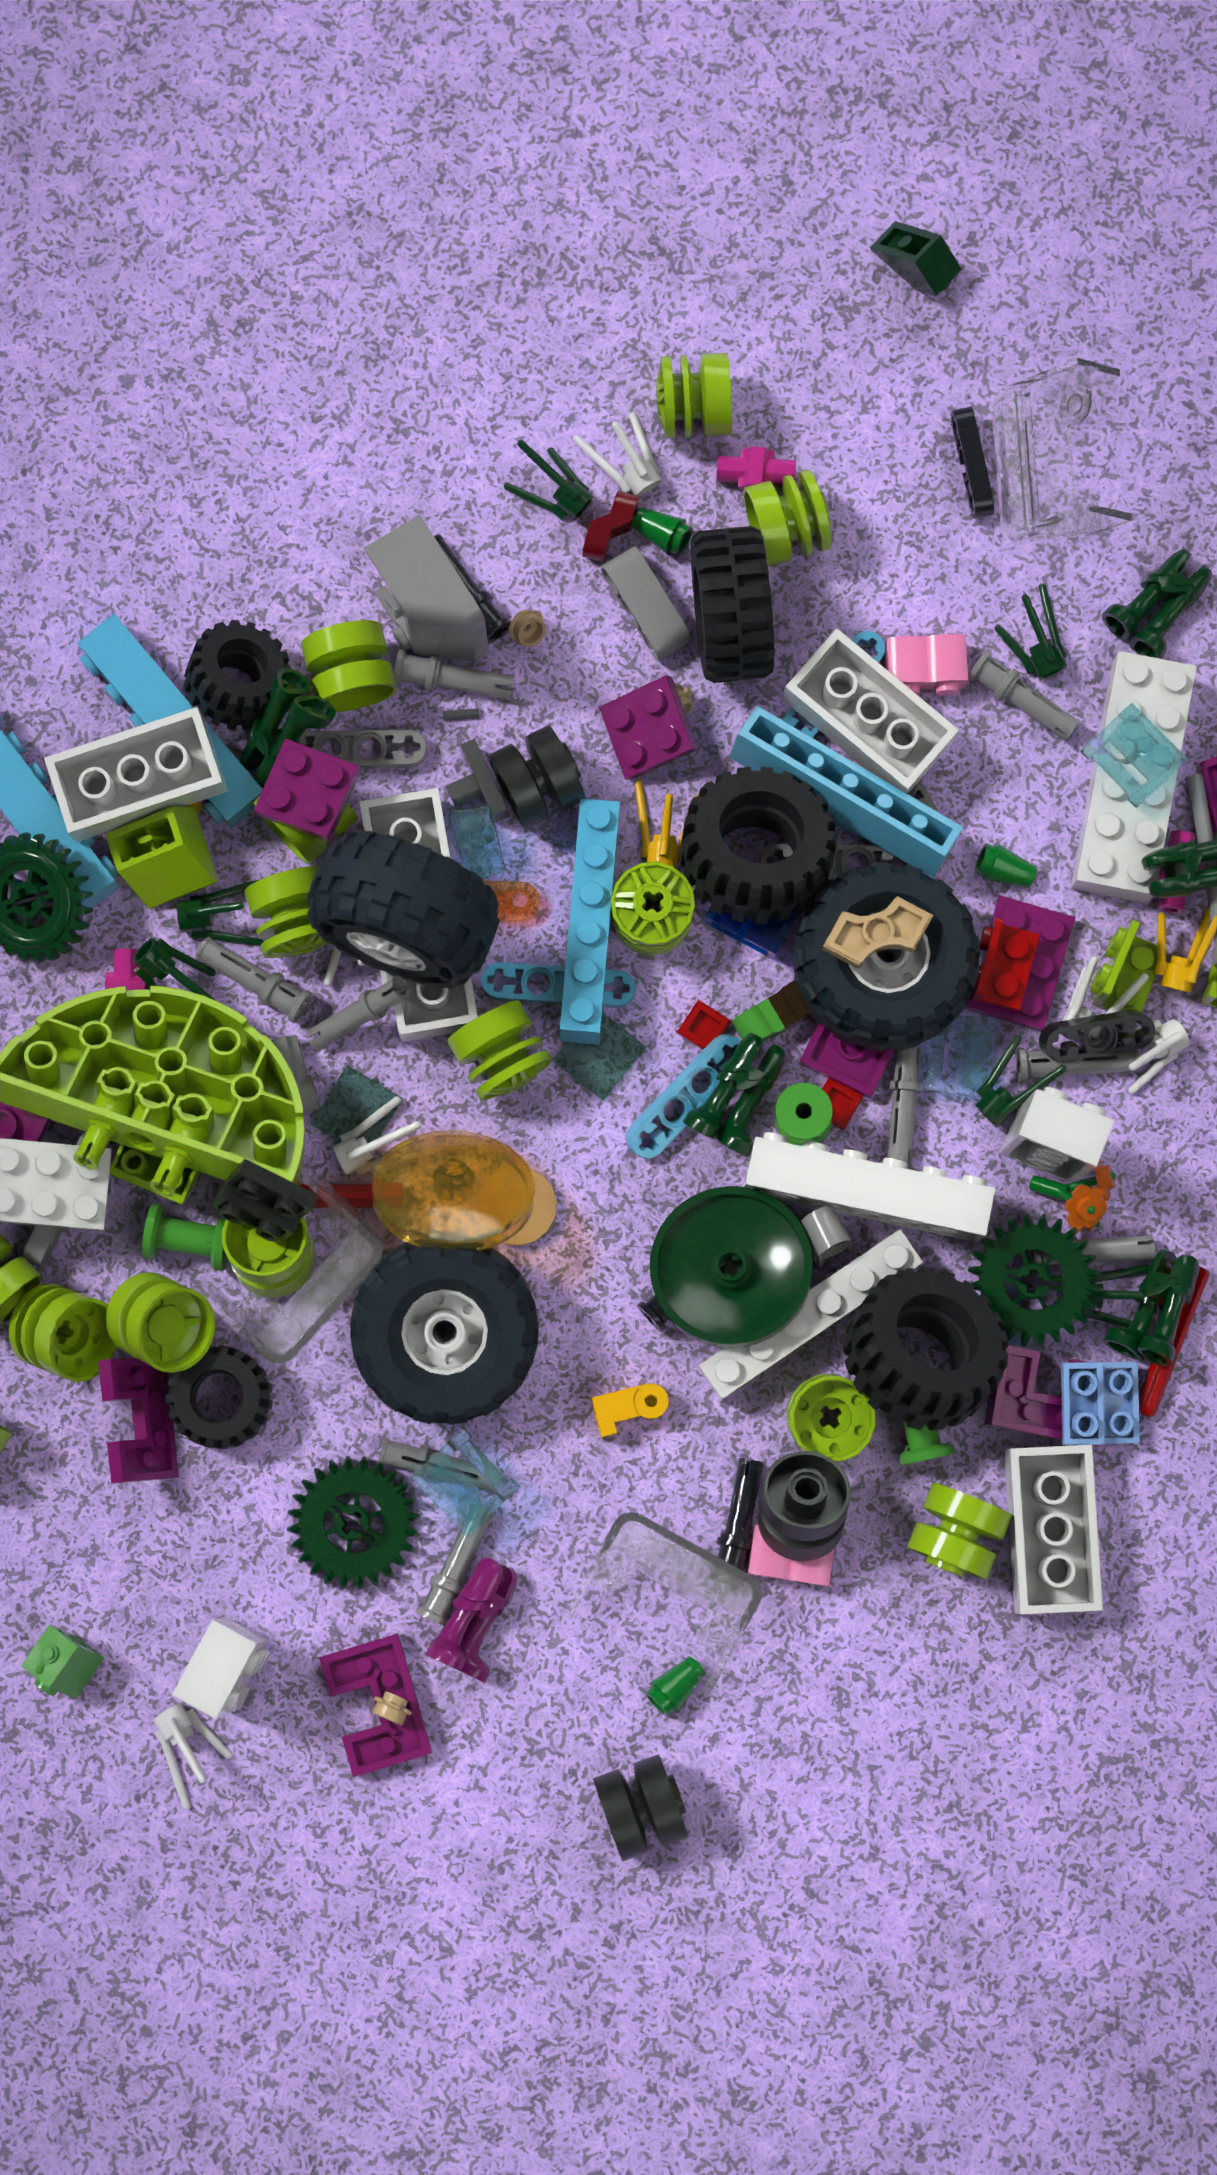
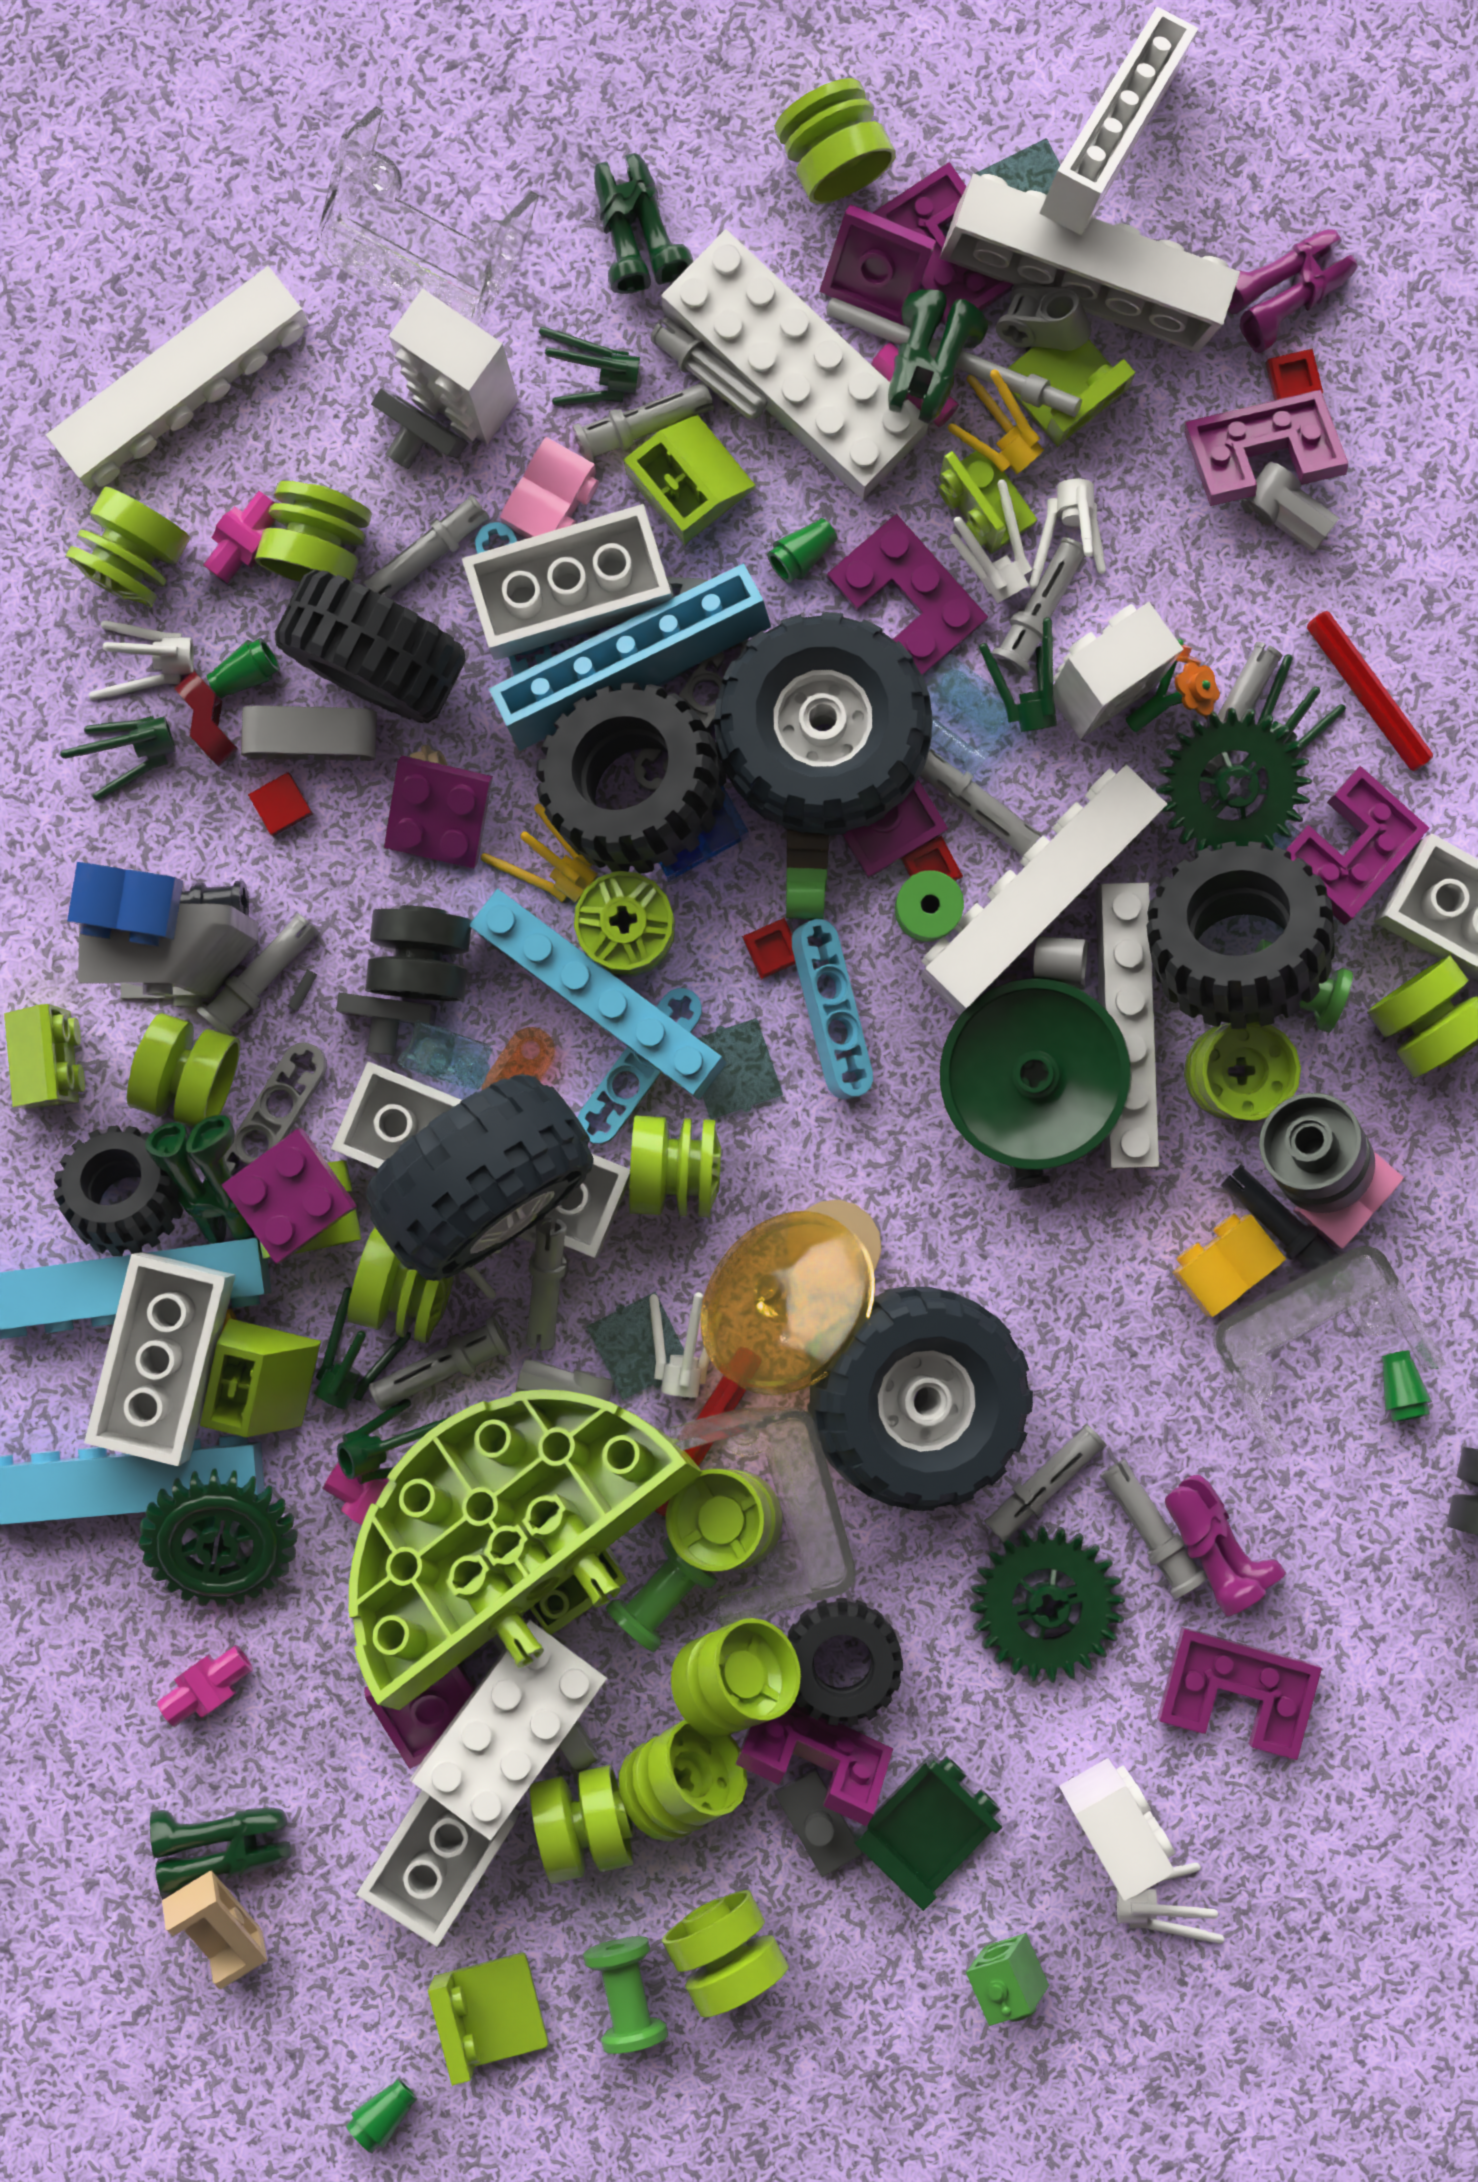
camera: 50 degrees left, 5 degrees up
(89, 1458) = (819, 1828): none -> dark grey tile
(136, 1538) = (928, 1828): none -> dark green panel
(263, 1201) = (683, 1501): pearl dark grey slope -> none
(298, 564) = (43, 1056): none -> lime slope
(391, 1708) = (1257, 1682): tan plate -> none
(440, 543) = (124, 902): none -> blue brick
(455, 1492) = (1082, 1487): clear light blue plate -> none
(532, 633) = (257, 867): tan plate -> none
(583, 616) = (280, 804): none -> red tile
(641, 1401) = (1101, 1259): yellow leg -> none
(684, 1499) = (1227, 1264): none -> yellow brick
(738, 1075) = (865, 936): dark green piece -> none
(831, 603) = (428, 548): none -> light grey pin
(838, 356) = (179, 379): none -> white brick
(893, 928) = (807, 694): tan tile -> none
(912, 543) = (415, 430): none -> dark grey tile
(917, 257) = (126, 234): dark green slope -> none
(966, 538) = (454, 368): none -> white brick
(972, 457) = (353, 308): black beam -> none
(1004, 752) = (687, 476): none -> lime slope
(1004, 965) = (903, 611): red bracket -> none
(1092, 705) = (695, 358): none -> light grey axle
(1100, 1403) = (1391, 798): light blue slope -> none
(1113, 1041) = (1016, 580): black beam -> none
(1142, 746) = (774, 334): clear light blue plate -> none
(1167, 1287) = (1319, 668): dark green piece -> none

